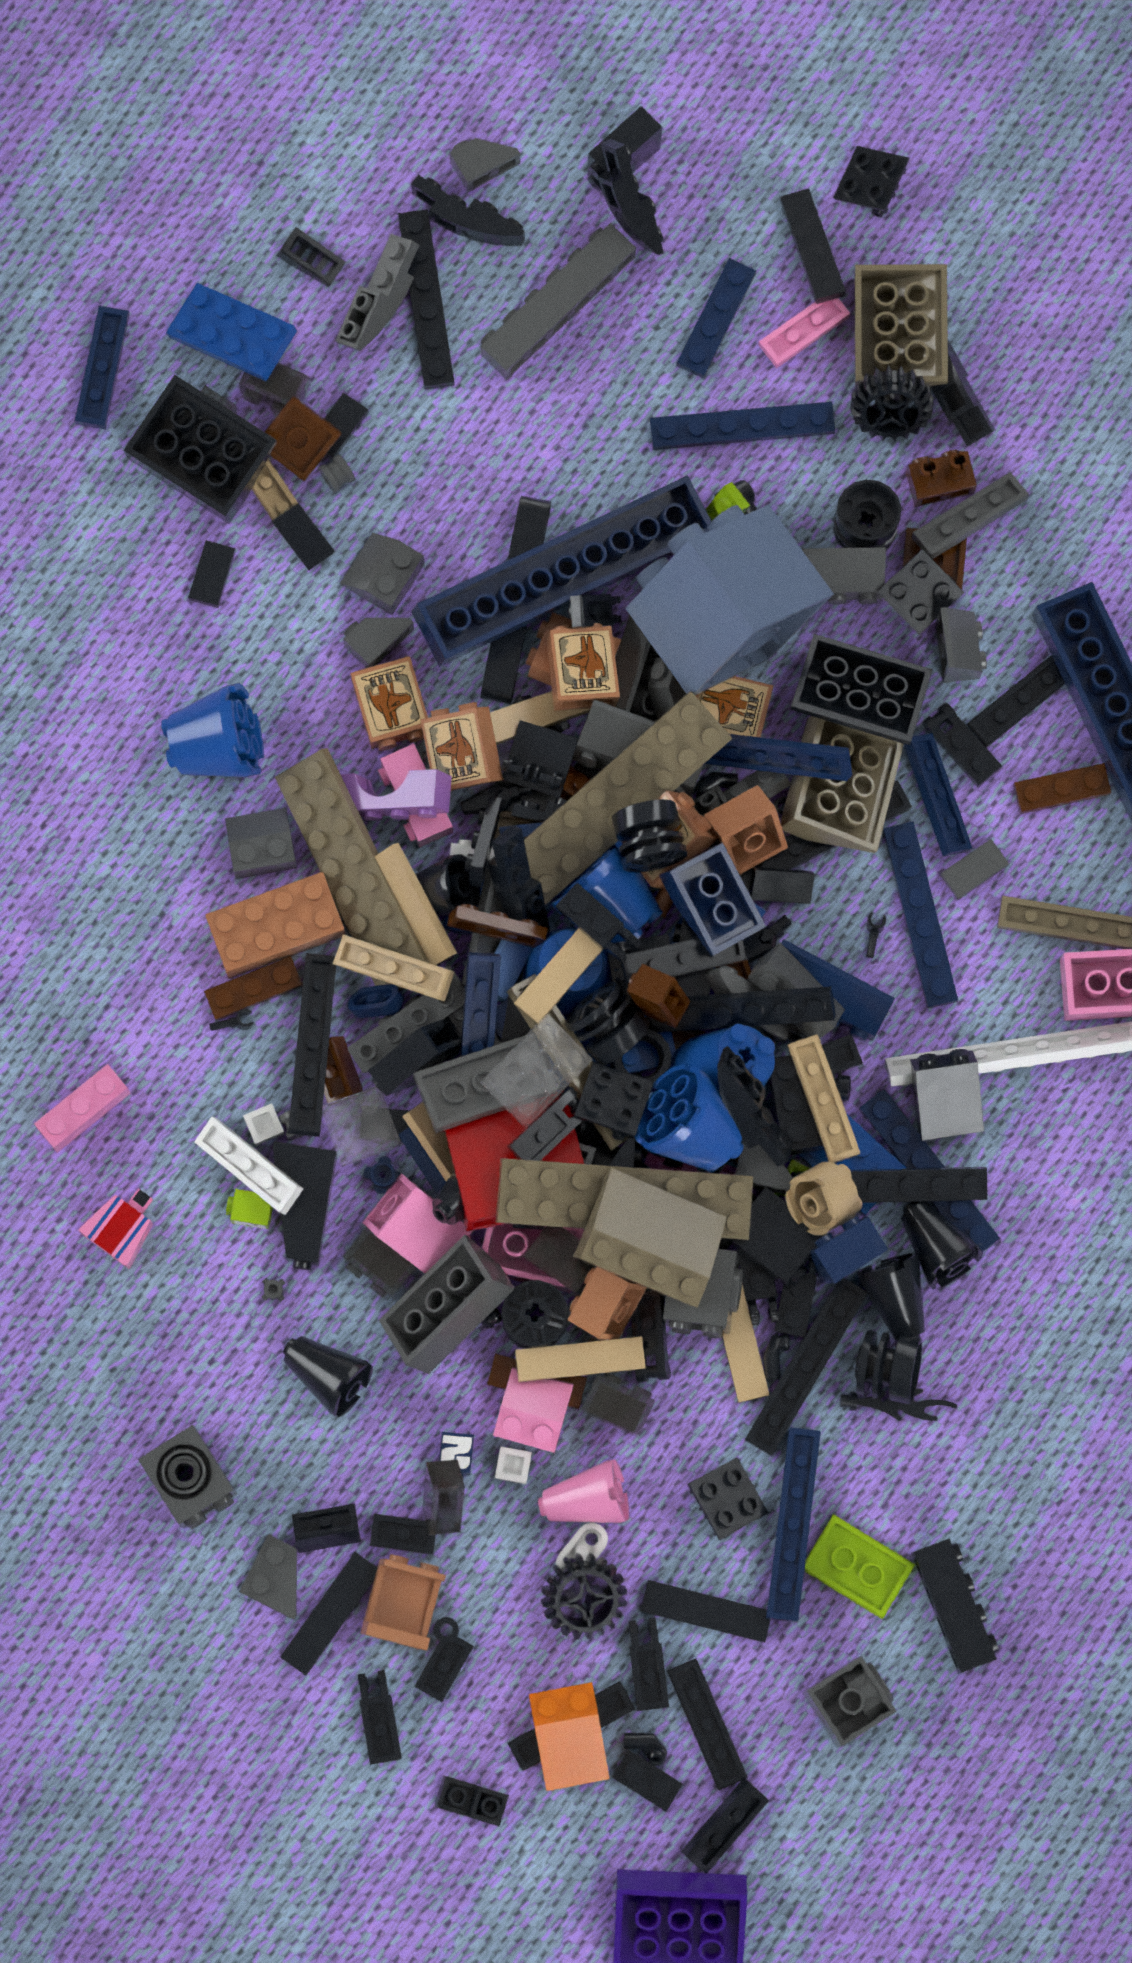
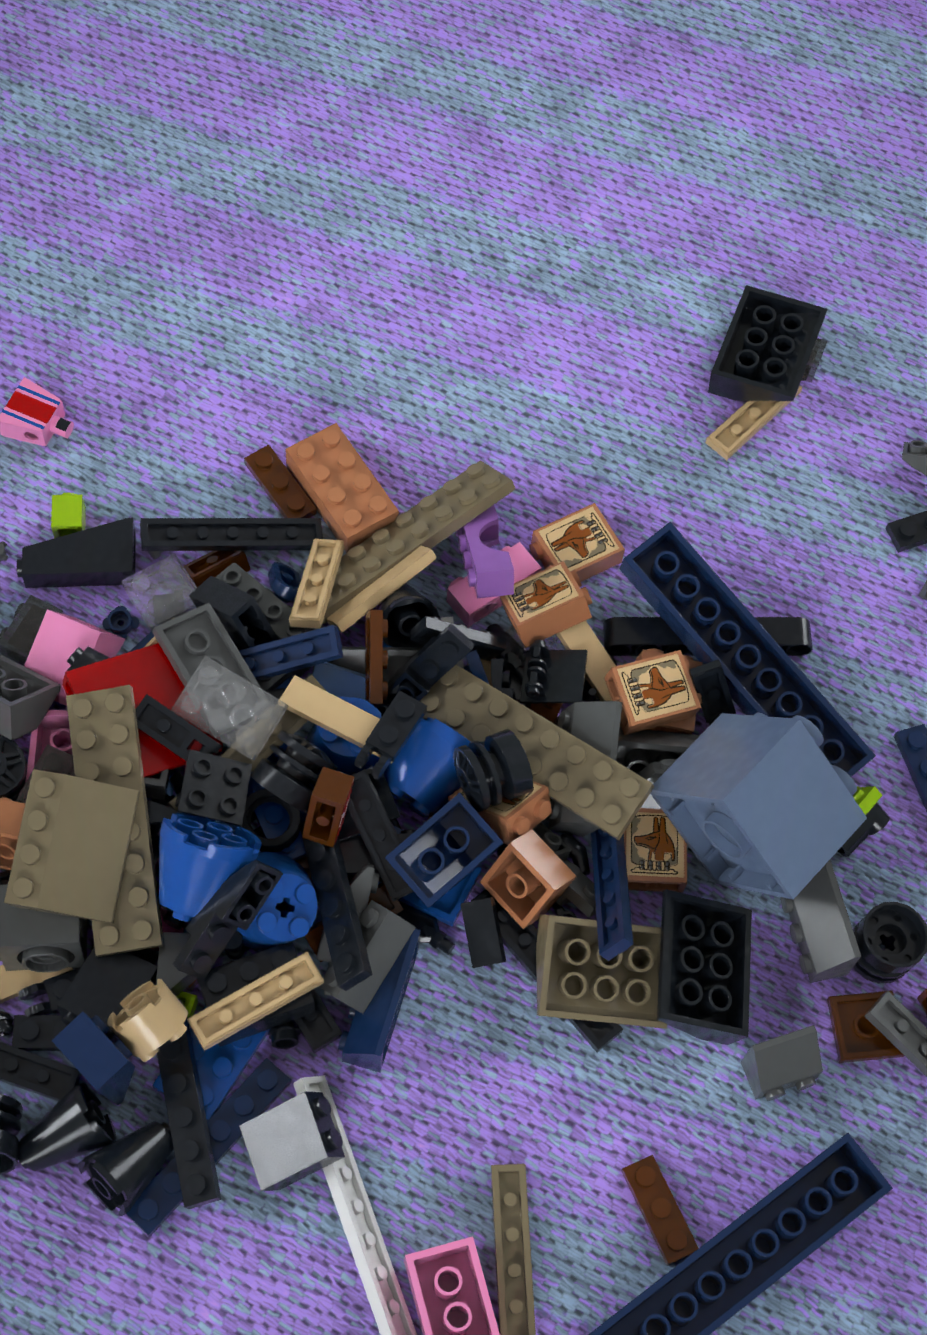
camera: 75 degrees right, 15 degrees down
(82, 1108) = (140, 366): bright pink brick -> none
(102, 367) = (818, 269): dark blue plate -> none
(212, 574) = (657, 386): black tile -> none
(215, 736) = (507, 406): blue cone -> none
(231, 331) = (883, 355): blue plate -> none
(233, 1022) = (245, 475): black hand -> none
(248, 1165) = (105, 501): white plate -> none
(260, 843) = (415, 464): dark grey slope -> none
(263, 1124) = (150, 508): white plate -> none
(278, 388) = (846, 402): clear smoke brick -> none
(301, 437) = (804, 426): reddish brown tile -> none
(303, 536) = (714, 447): black slope -> none
(336, 473) = (781, 465): dark grey wheel -> none
(346, 417) = (826, 462): black tile -> none
(376, 638) = (632, 520): dark grey slope -> none
(383, 572) = (702, 521): dark grey slope -> none
(873, 935) = (456, 1039): black hand -> none
(920, 591) = (829, 1006): black hinge -> none
(920, 915) = (485, 1084): dark blue plate -> none
(937, 795) = (617, 1074): dark blue plate -> none
(962, 745) = (677, 1094): black plate -> none
(974, 869) = (548, 1131): dark grey tile -> none
(1017, 702) = (740, 1143): black tile -> none

